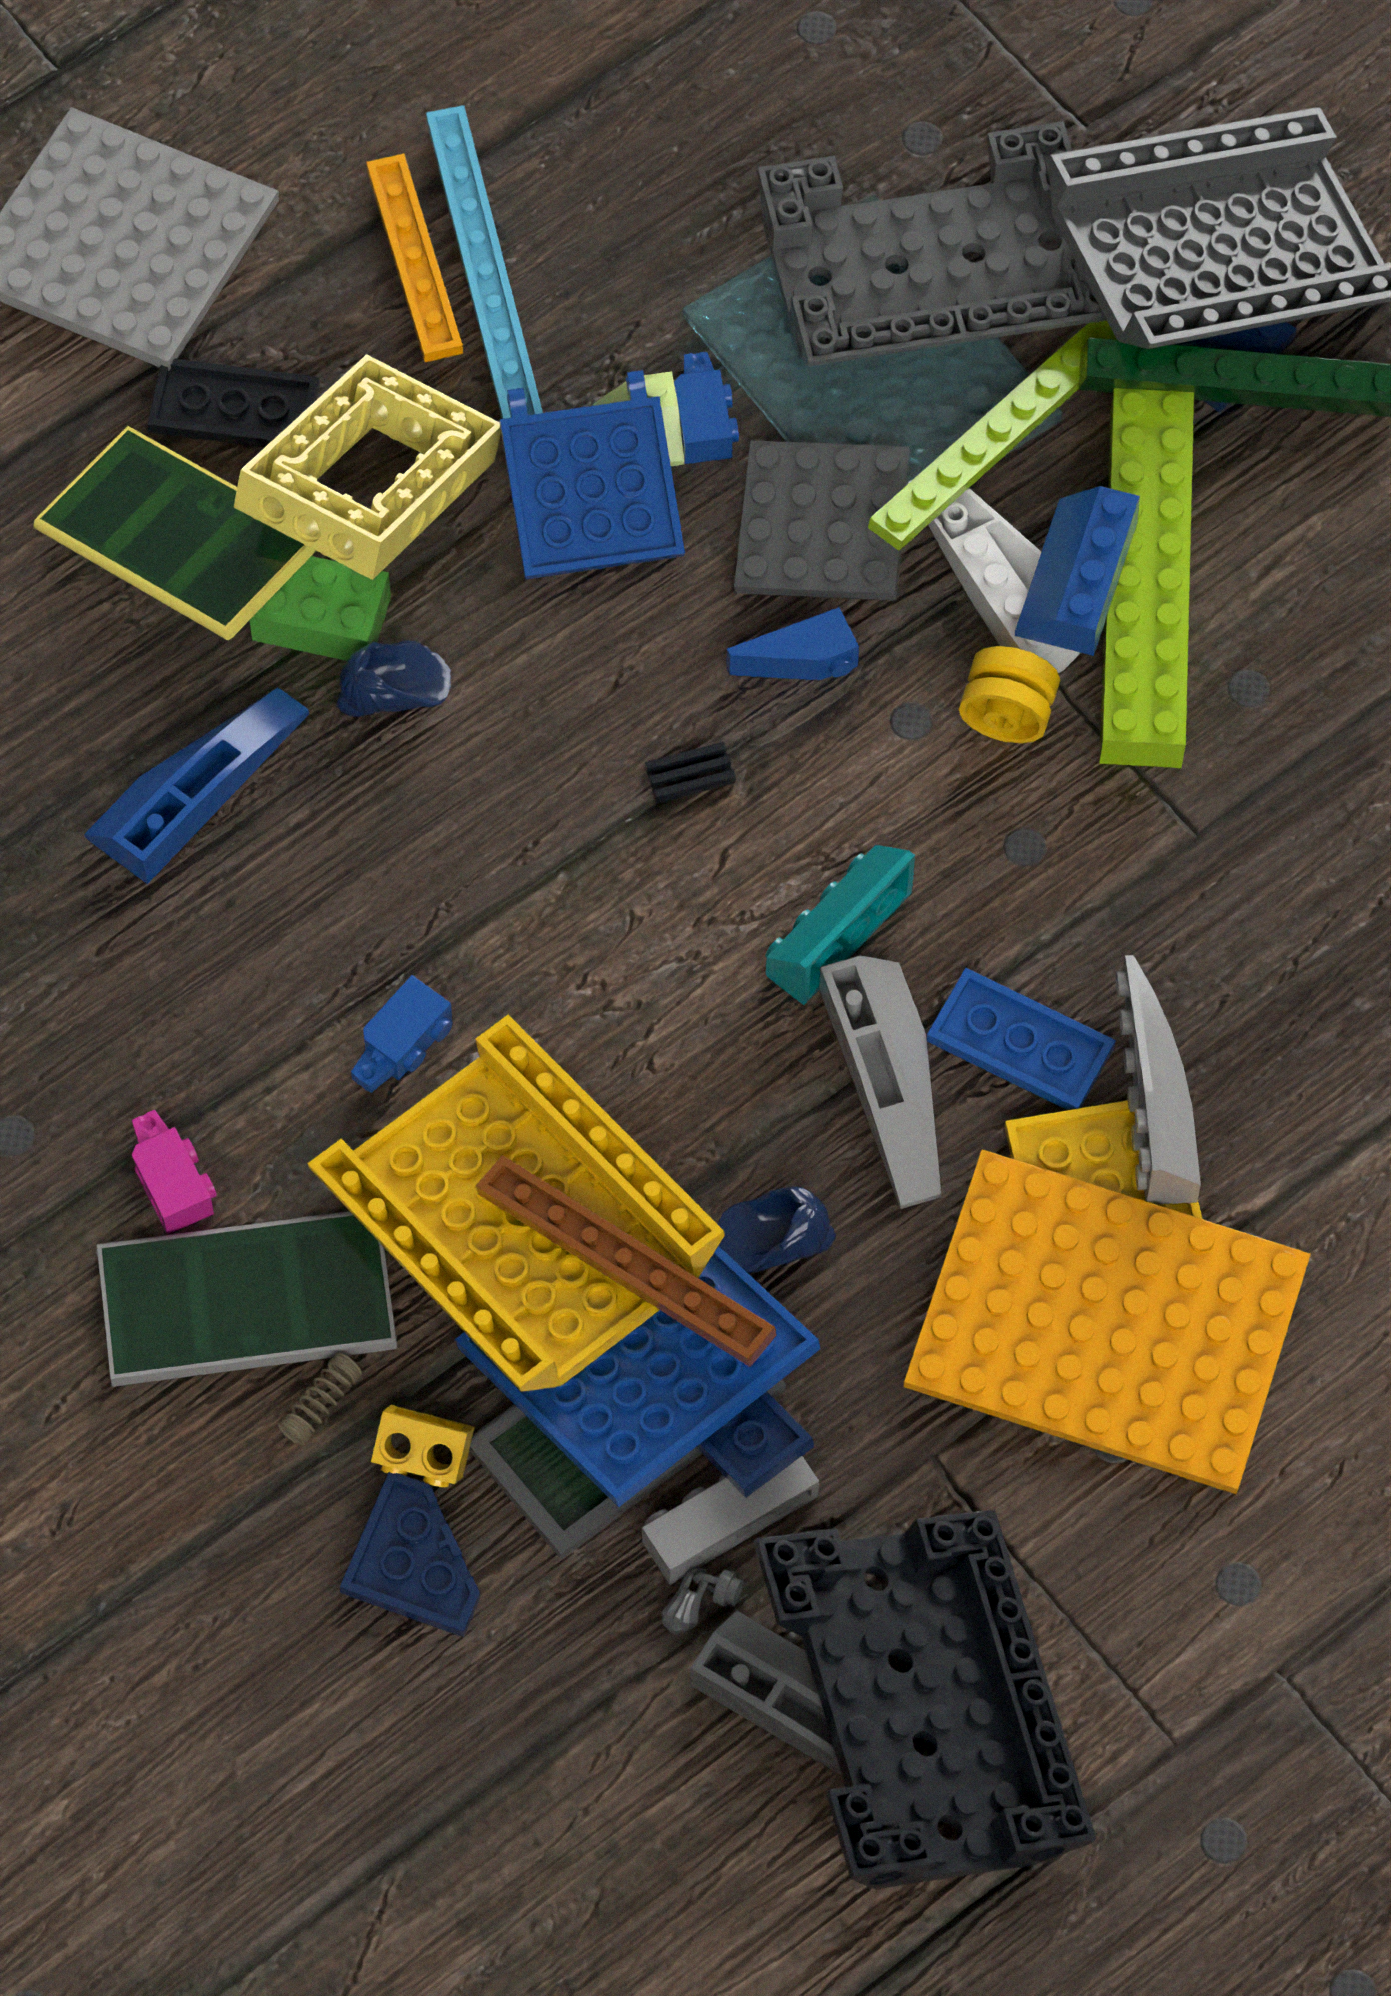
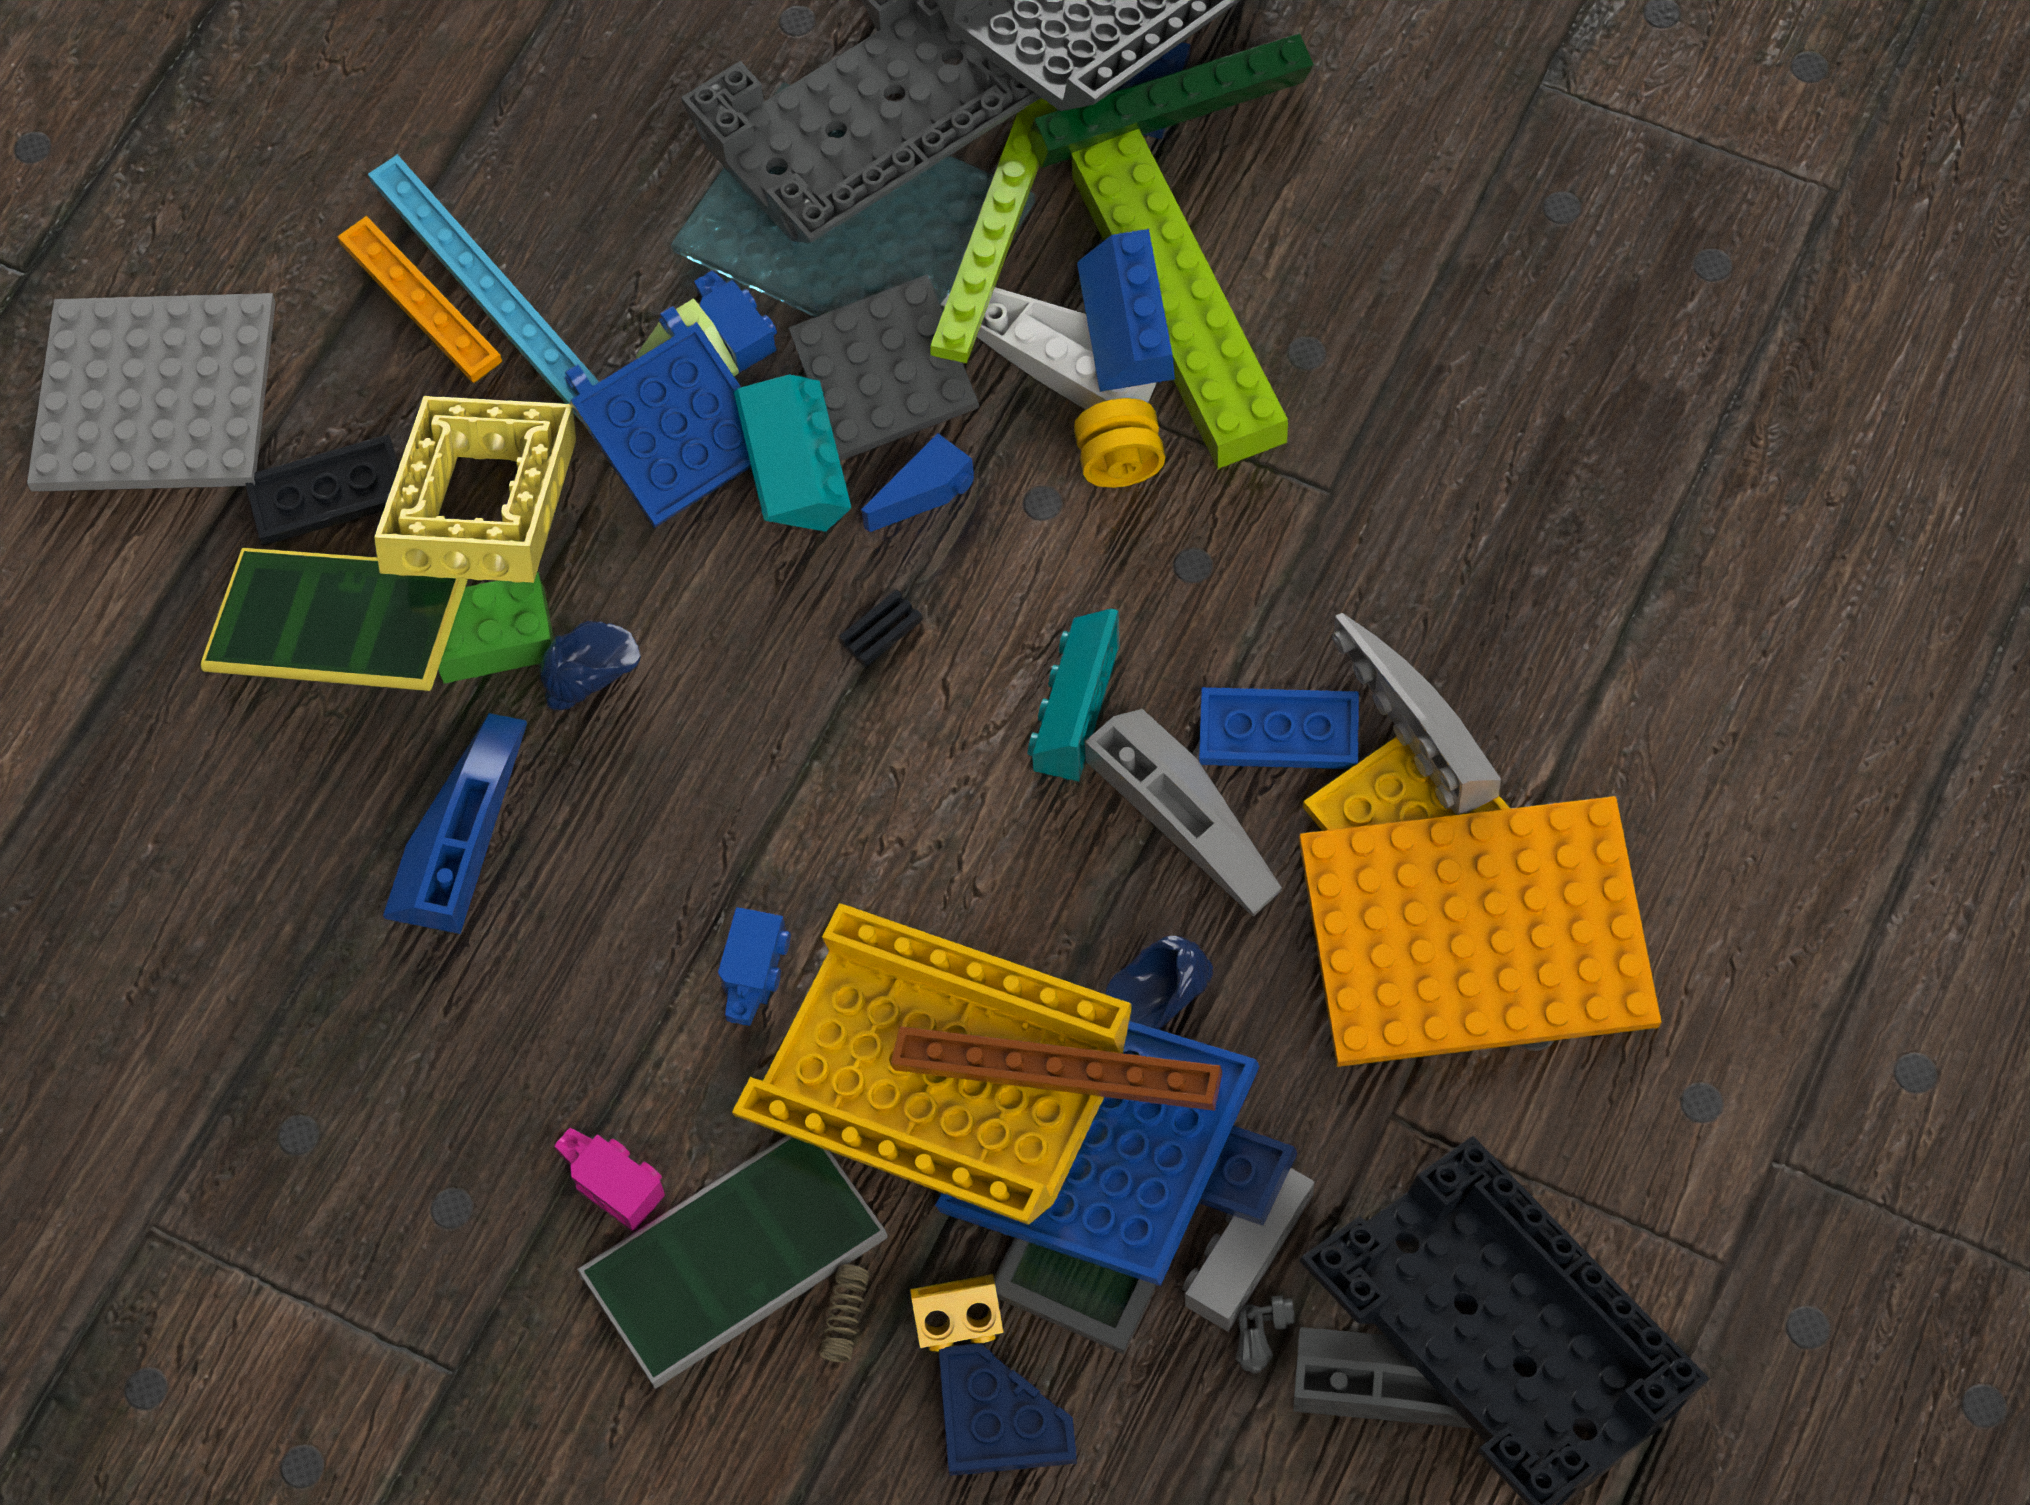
camera: 20 degrees left, 0 degrees up
(689, 564) = (793, 452): none -> teal slope

